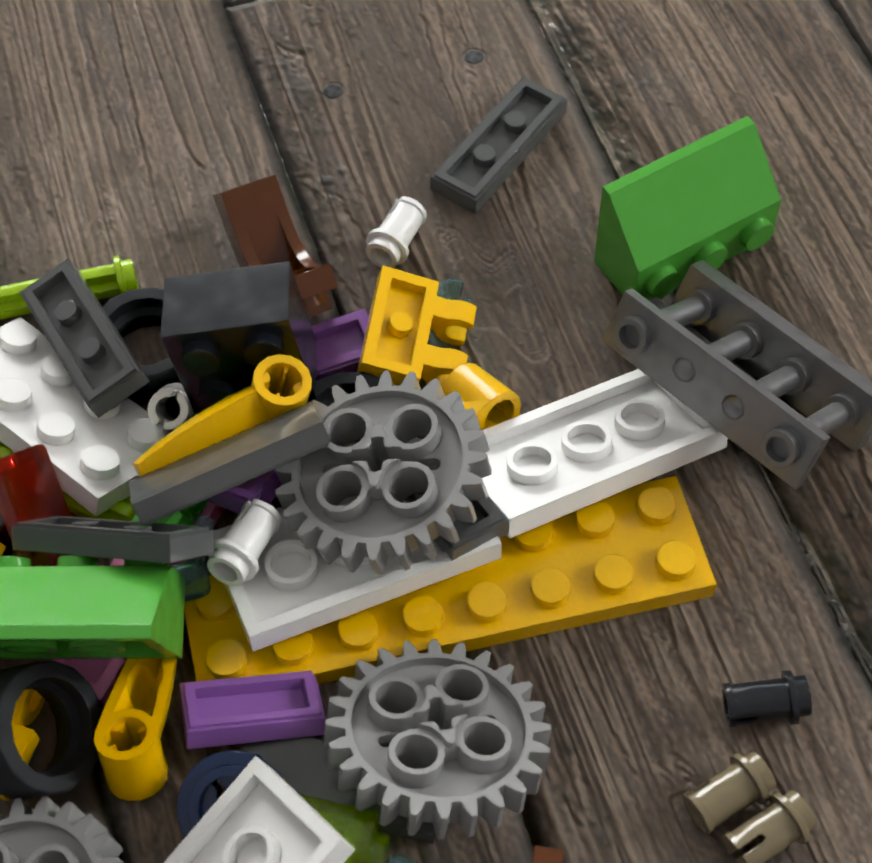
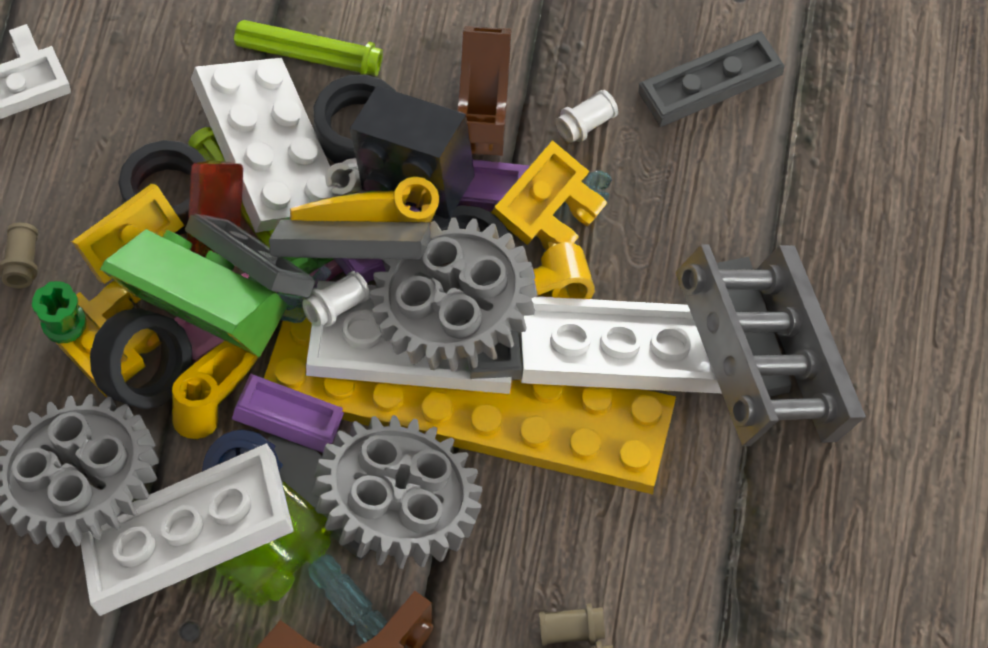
camera: 25 degrees right, 5 degrees up
(84, 338) = (312, 97): dark grey tile -> none
(687, 209) = (807, 203): bright green slope -> none
(767, 700) = (637, 580): black pin -> none

